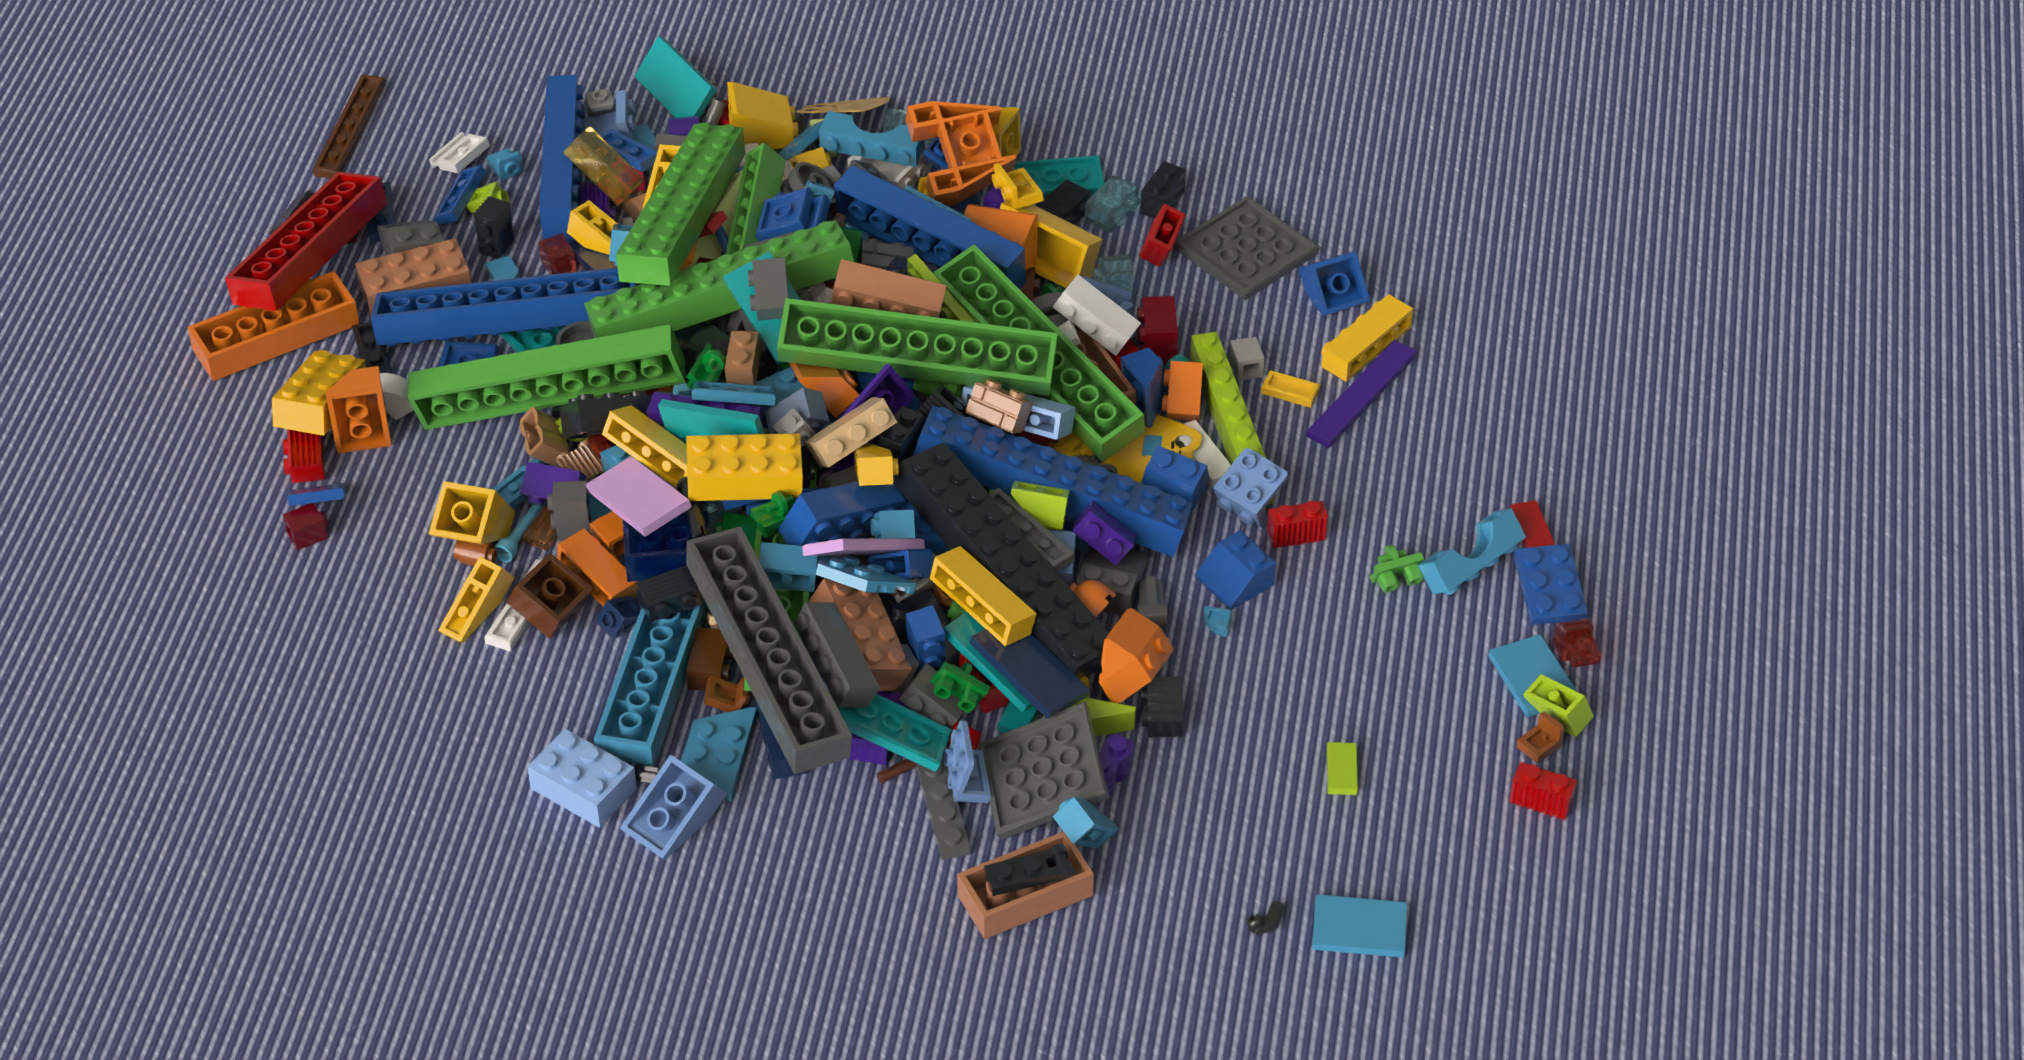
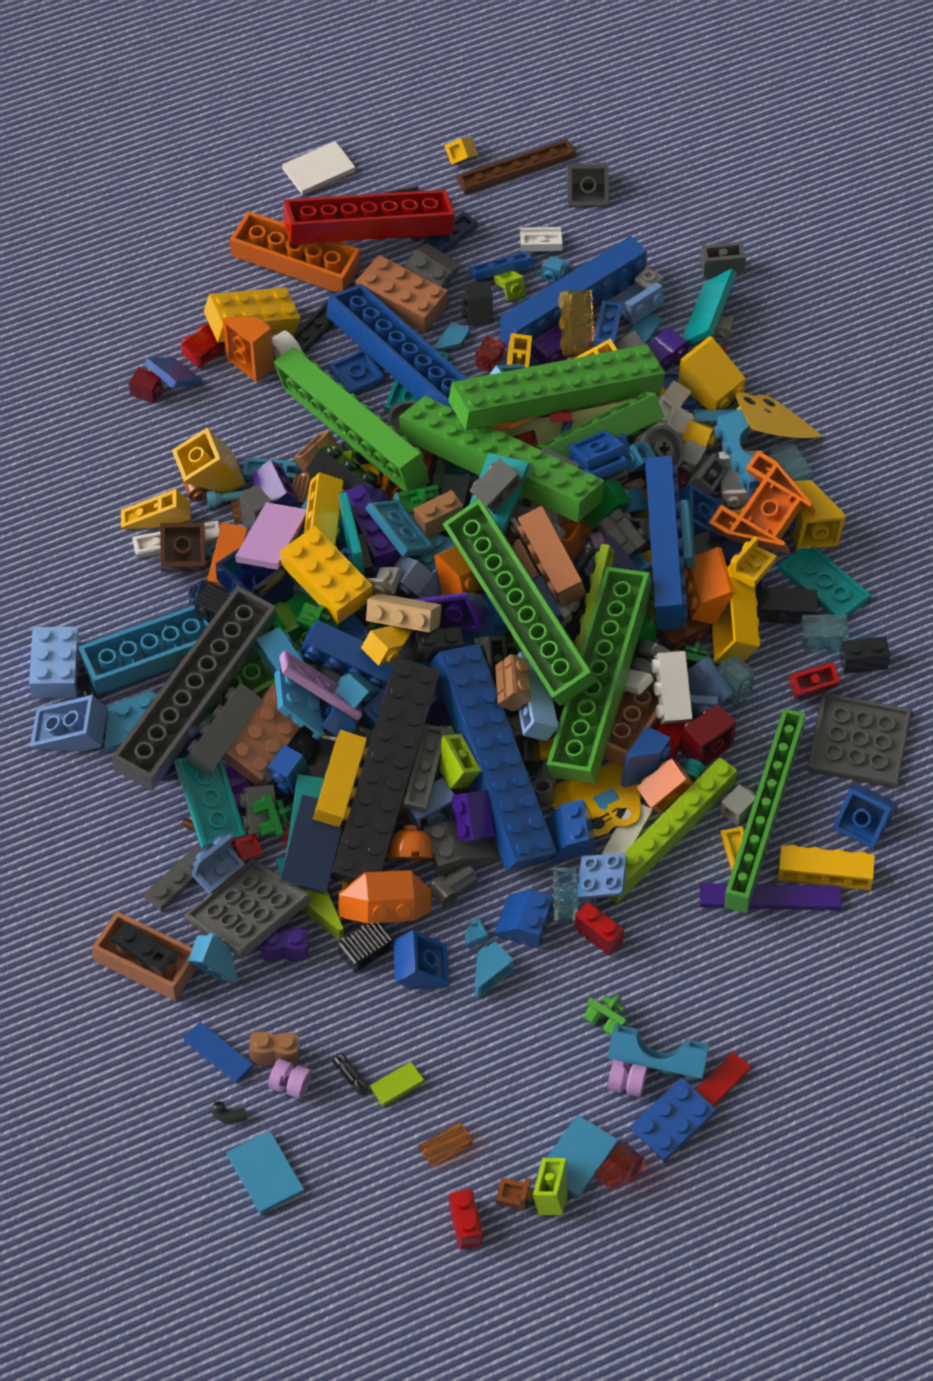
camera: 55 degrees right, 10 degrees up
(181, 261) = (318, 168): none -> white tile
(287, 149) = (461, 149): none -> yellow panel
(432, 86) = (587, 184): none -> dark grey slope
(629, 45) = (722, 257): none -> dark grey brick
(1185, 891) = (218, 1052): none -> blue tile
(1218, 675) = (420, 962): none -> blue slope
(1226, 839) = (268, 1048): none -> medium nougat brick
(1233, 515) = (565, 894): none -> clear light blue brick
(1271, 626) = (491, 967): none -> dark azure slope
(1272, 843) = (297, 1082): none -> lavender wheel
(1277, 339) = (764, 811): none -> bright green brick
(1299, 797) = (350, 1073): none -> black axle
(1441, 766) = (445, 1144): none -> clear orange tile
(1481, 589) = (627, 1078): none -> lavender wheel

